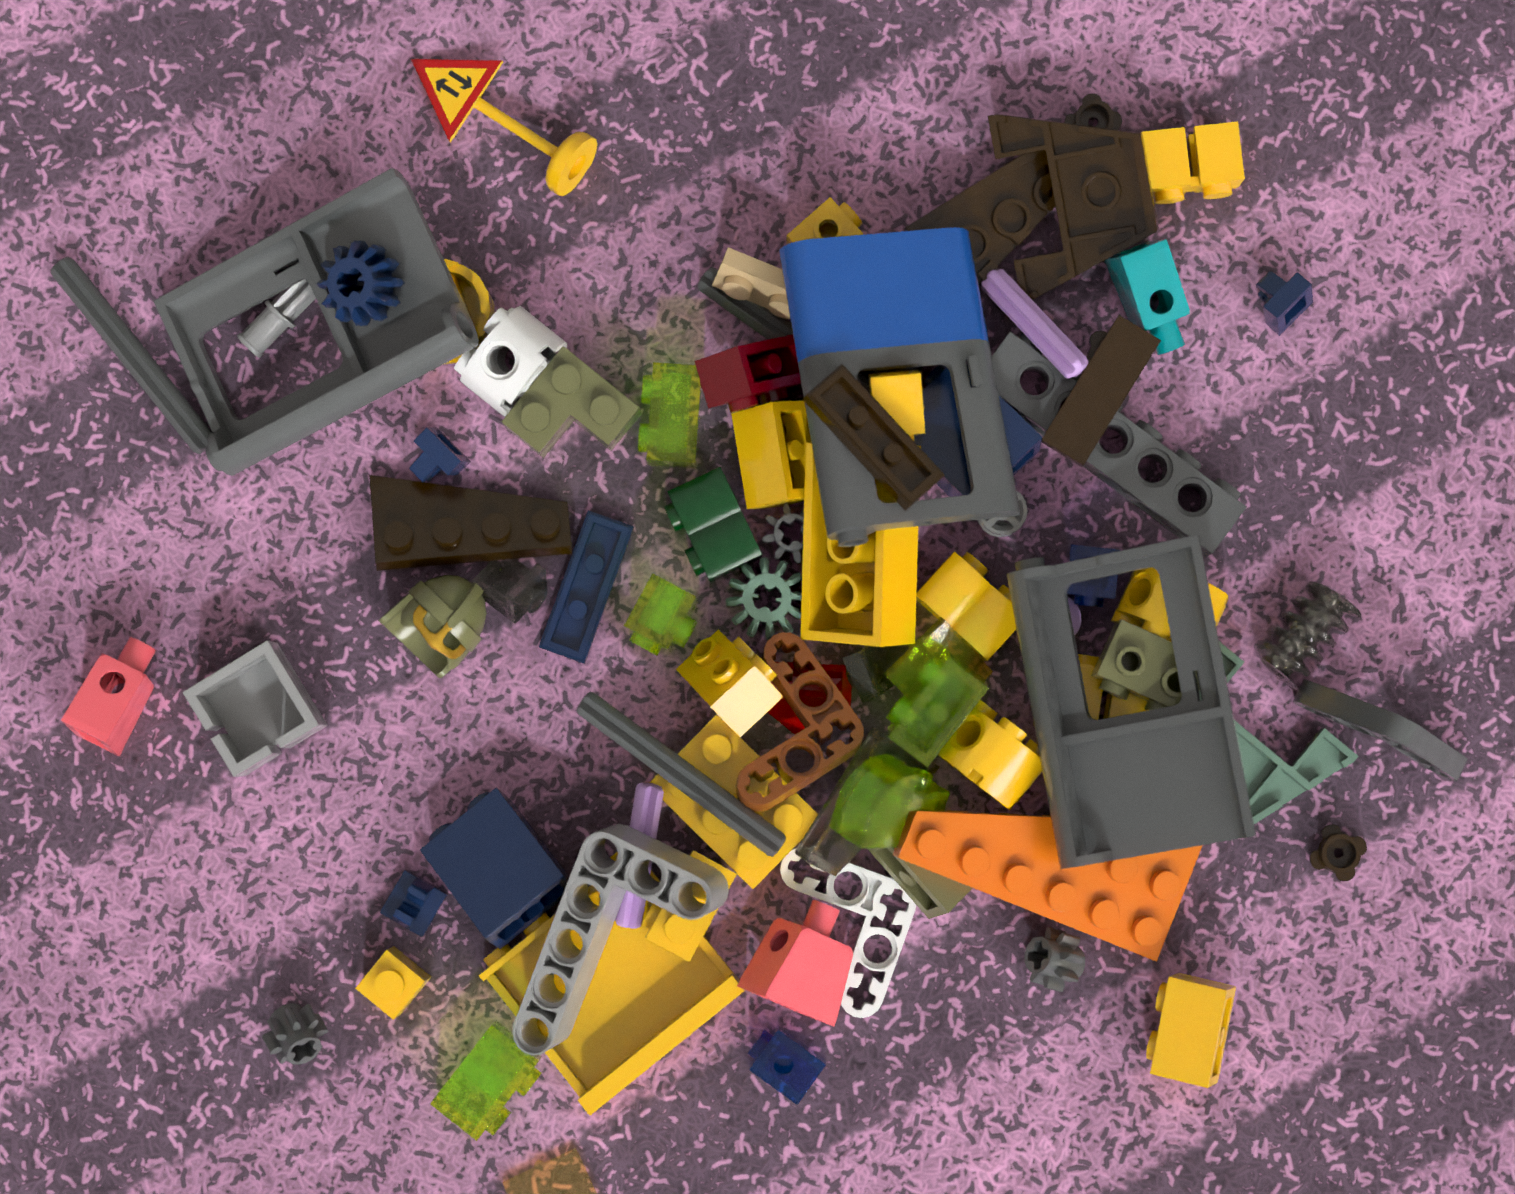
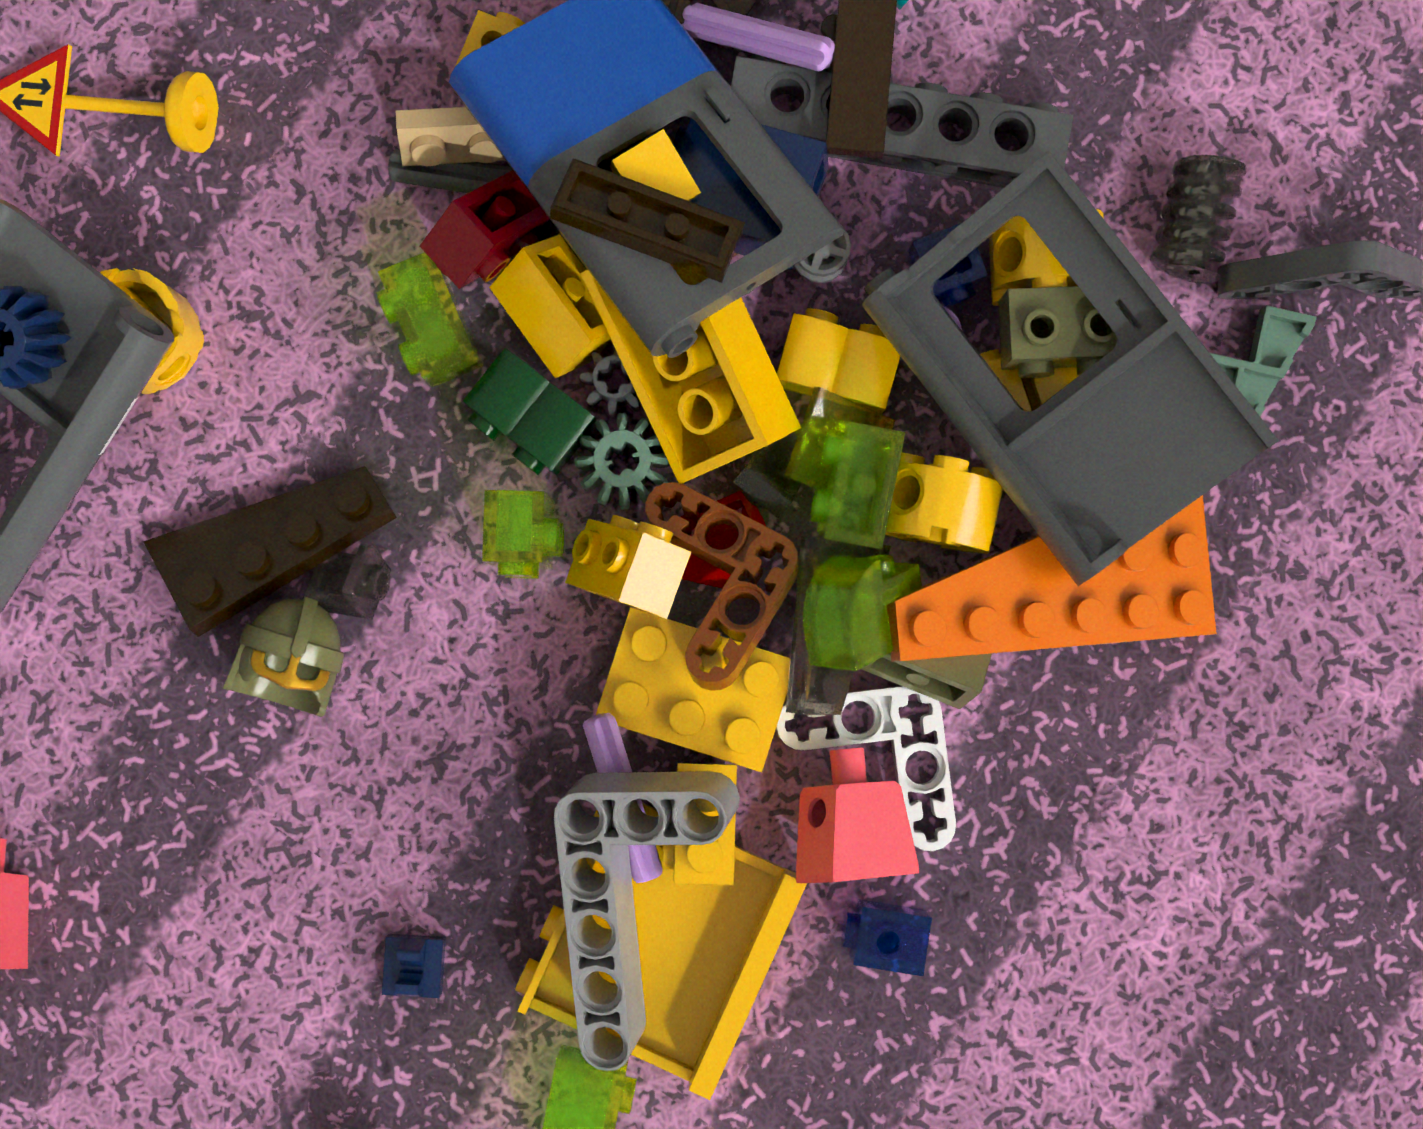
camera: 30 degrees left, 0 degrees up
(259, 707) = (145, 840): light grey piece -> none
(393, 982) = (431, 1063): yellow brick -> none
(437, 455) = (203, 486): dark blue tile -> none
(485, 368) = (226, 344): white brick -> none
(496, 867) = (479, 887): dark blue brick -> none
(568, 394) = (307, 353): olive brick -> none
(586, 587) = (430, 544): dark blue tile -> none
(681, 774) = (623, 689): dark grey axle -> none
(1054, 959) = (1112, 685): dark grey gear -> none
(1191, 1029) = (1291, 686): yellow brick -> none
(1351, 848) = (1359, 424): dark brown plate -> none

